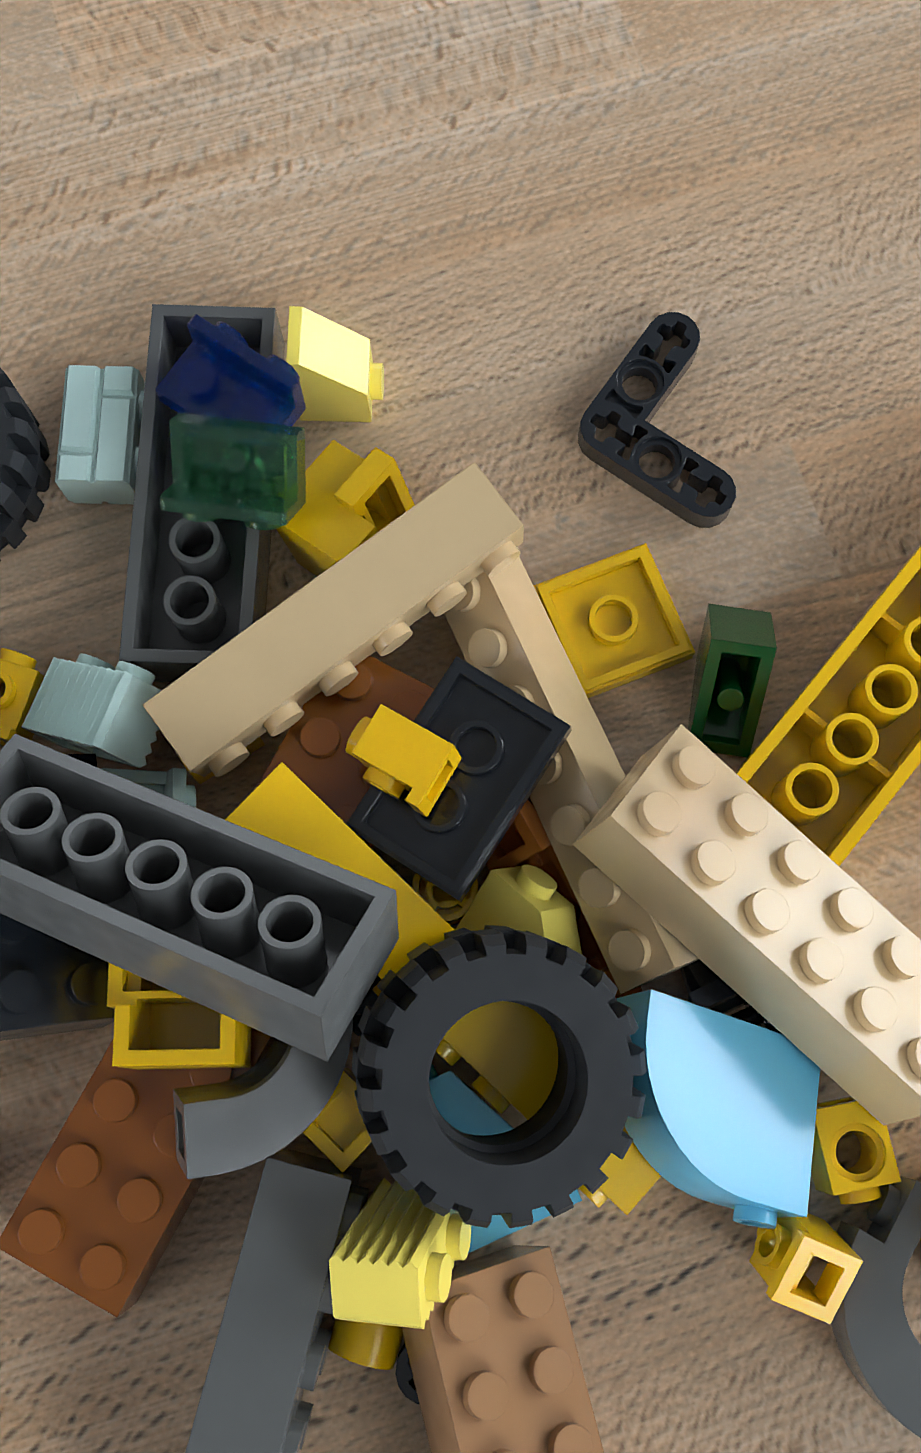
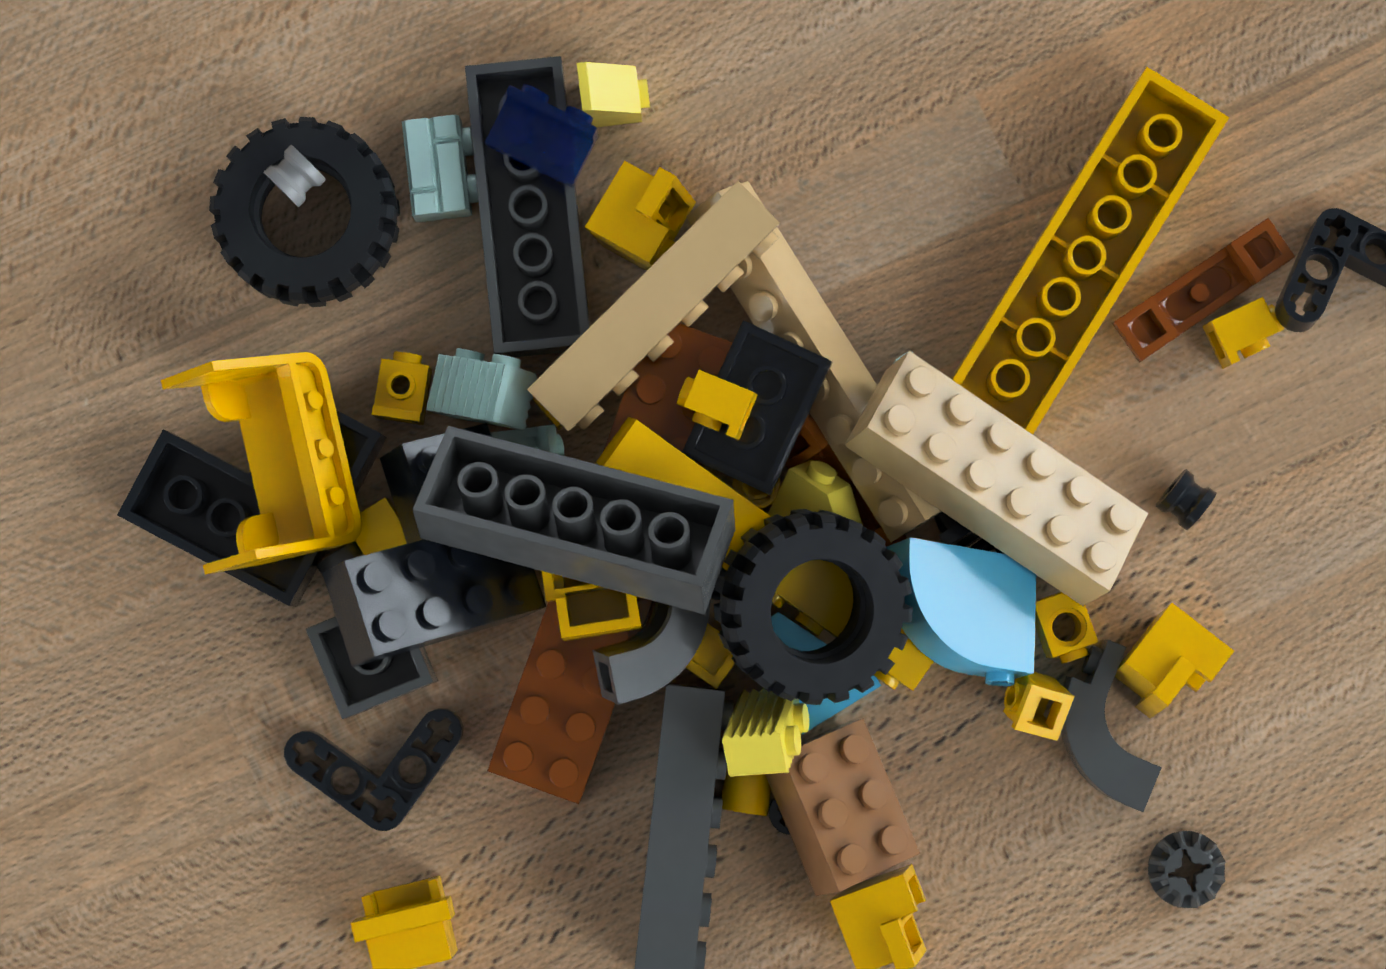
camera: 10 degrees left, 10 degrees up
(235, 471) = (560, 203): clear green bracket -> none
(615, 620) = (853, 261): yellow tile -> none
(633, 418) = (849, 90): black beam -> none
(731, 678) = (946, 297): dark green slope -> none

